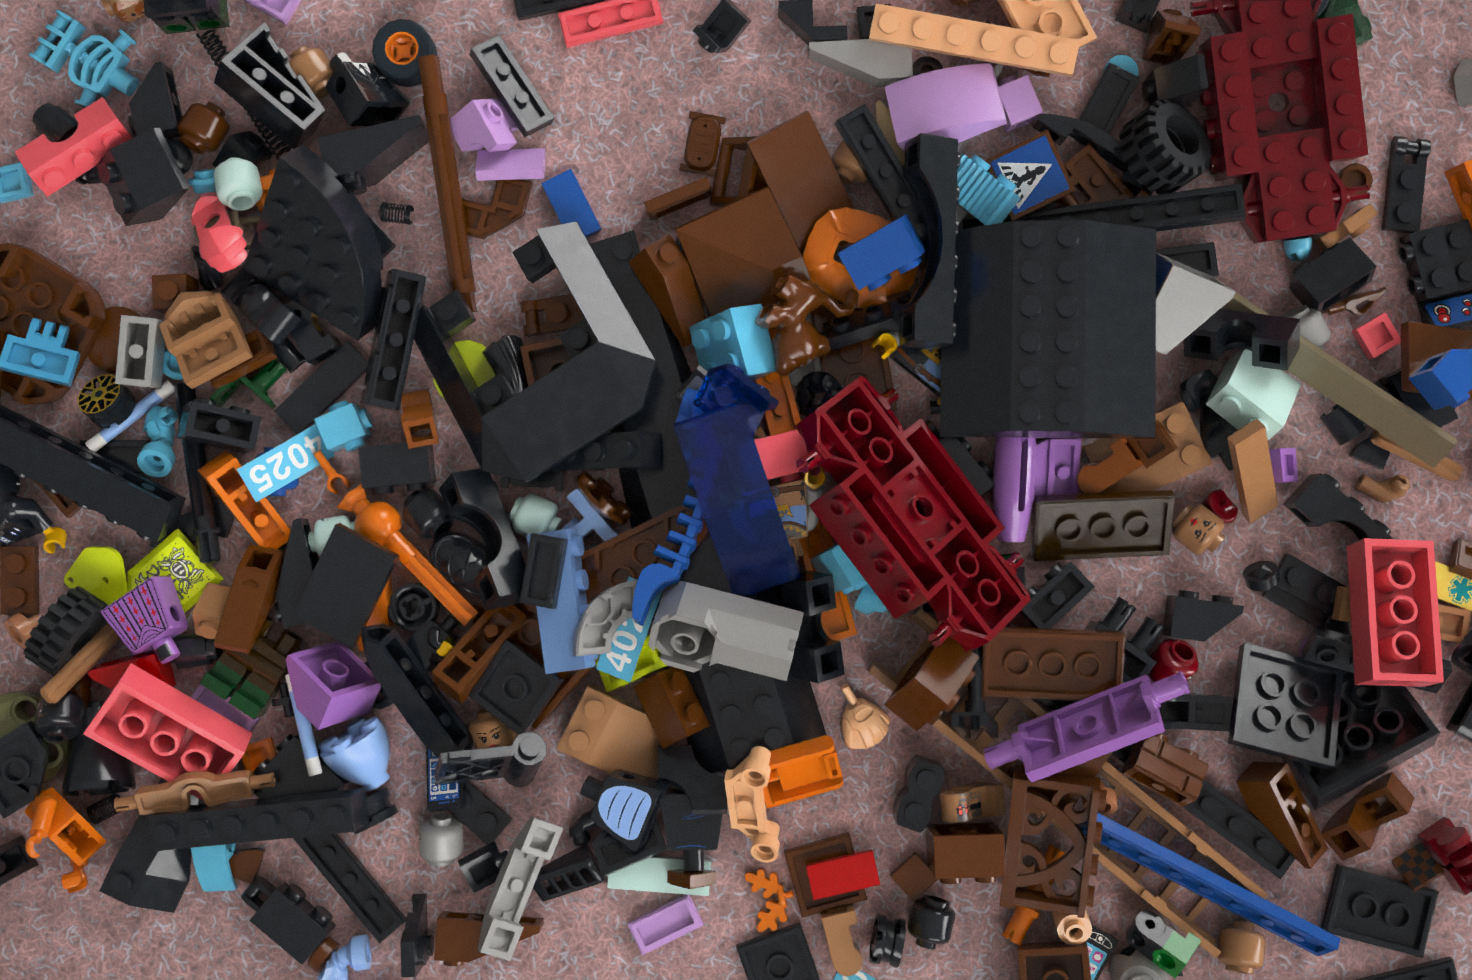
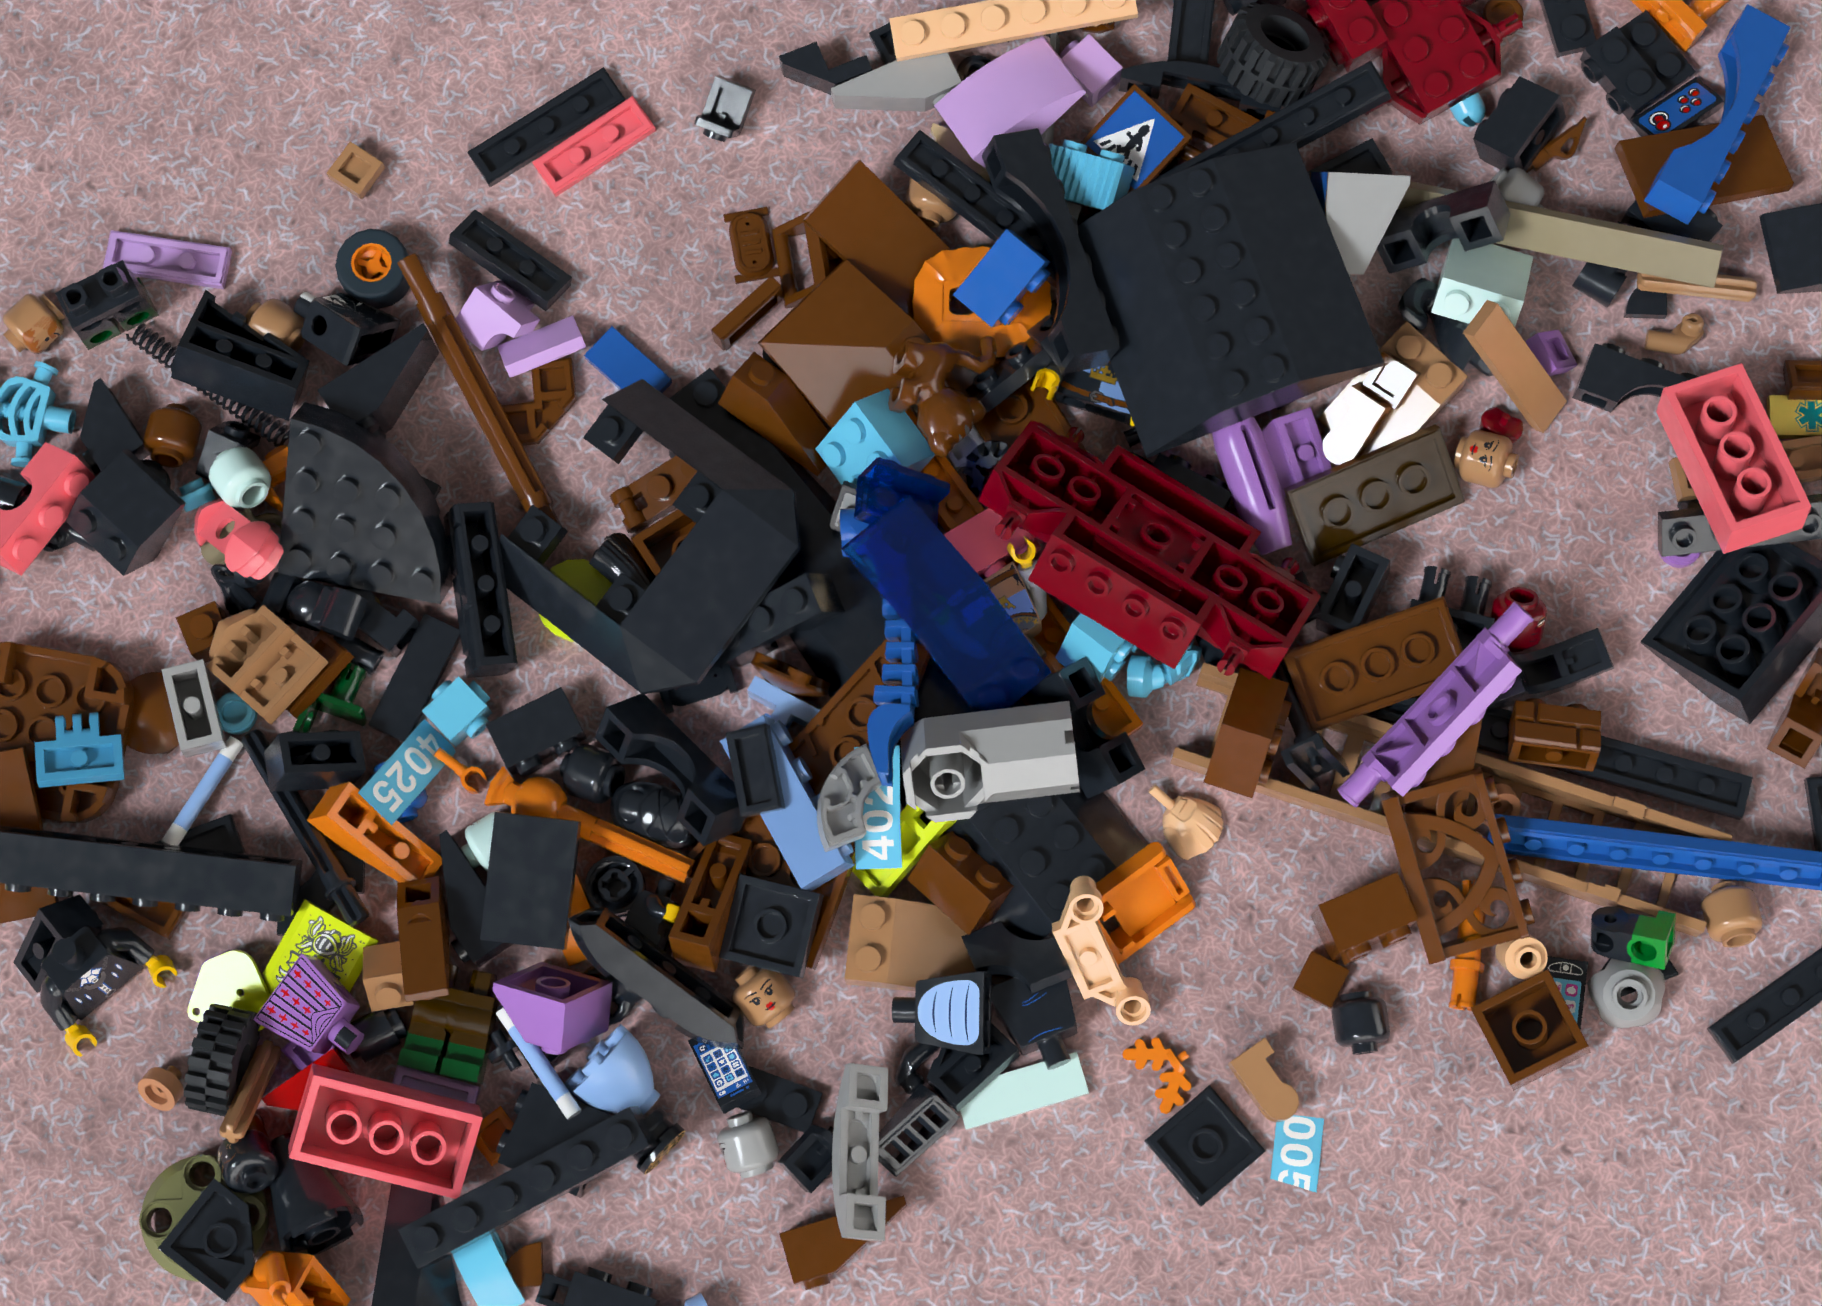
camera: 20 degrees left, 10 degrees down
(19, 580) = (135, 1033): reddish brown plate -> none
(95, 806) = (339, 1247): black piece -> none
(107, 403) = (171, 784): black wheel -> none
(158, 456) = (251, 825): medium azure arm -> none
(212, 787) = (419, 1198): medium nougat piece -> none
(353, 883) = (657, 1237): black tile -> none
(383, 214) = (413, 447): black piece -> none
(415, 942) = (768, 1276): black wing -> none
(418, 415) = (542, 662): dark orange leg -> none
(513, 763) = (802, 1019): black piece -> none
(534, 515) = (711, 724): light aqua head -> none
(665, 924) = (1051, 1147): lavender tile -> none
(691, 879) = (1059, 1073): reddish brown tile -> none
(812, 852) = (1216, 1017): reddish brown tile -> none
(842, 874) = (1235, 1004): red tile -> none
(887, 941) = (1317, 1061): black wheel -> none
(914, 801) = (1283, 864): black brick -> none
(972, 802) = (1352, 861): medium nougat leg -> none
(1195, 618) = (1525, 556): black slope -> none
(1261, 575) = (1578, 484): black tile -> none
(1281, 808) = (1709, 734): reddish brown slope -> none
(1286, 706) = (1663, 614): black plate -> none
(1304, 591) = (1632, 484): black plate -> none
(1353, 225) = (1520, 62): medium nougat plate -> none
(1377, 336) = (1597, 173): coral plate -> none

